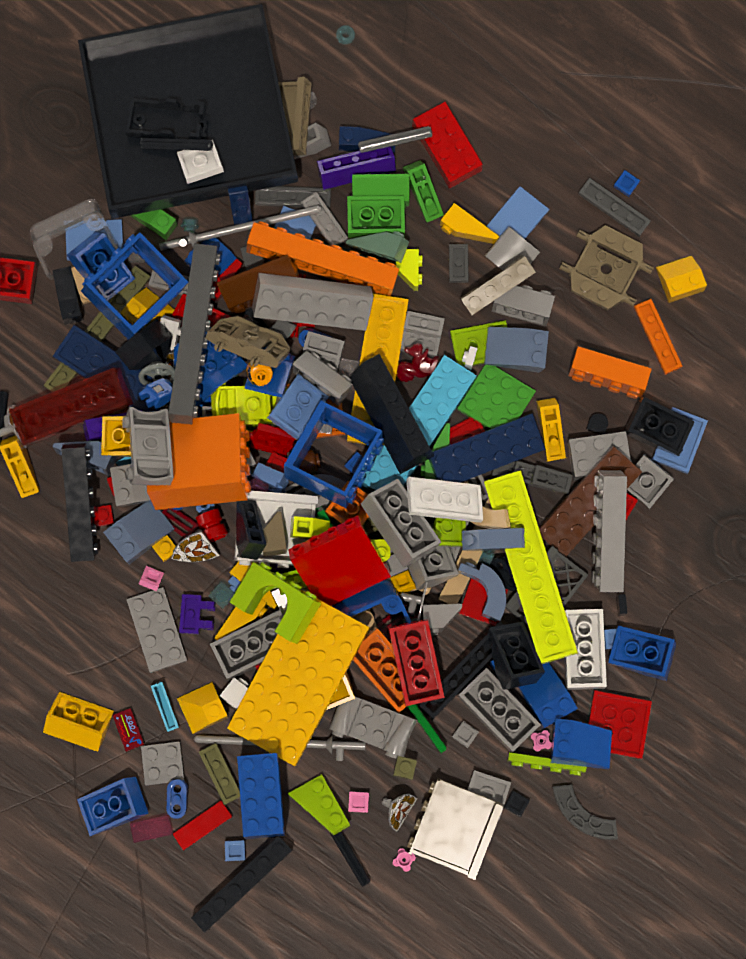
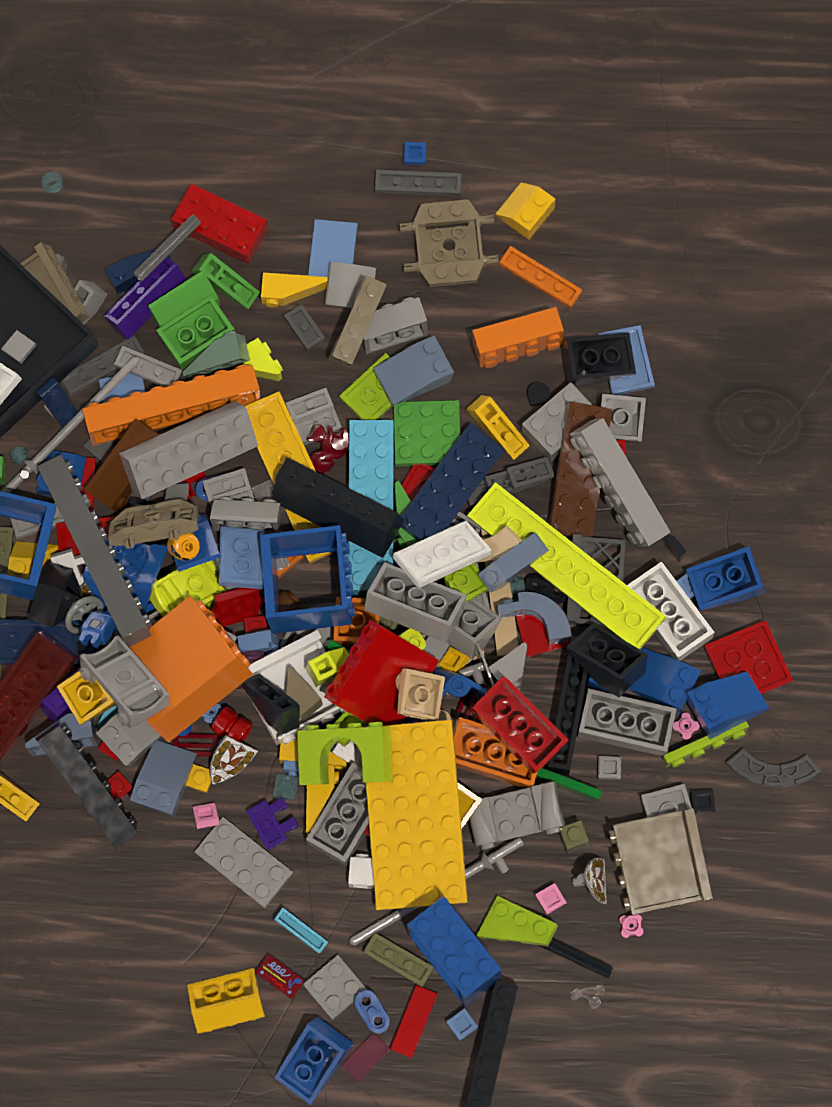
camera: 25 degrees left, 5 degrees down
(202, 708) = (339, 908): yellow slope -> none
(238, 145) = (18, 347): none -> light grey piece
(341, 897) = (594, 1002): none -> clear piece
(353, 463) = (331, 579): blue plate -> none
(358, 593) = (419, 694): none -> tan slope
(469, 357) = (374, 407): white plate -> none

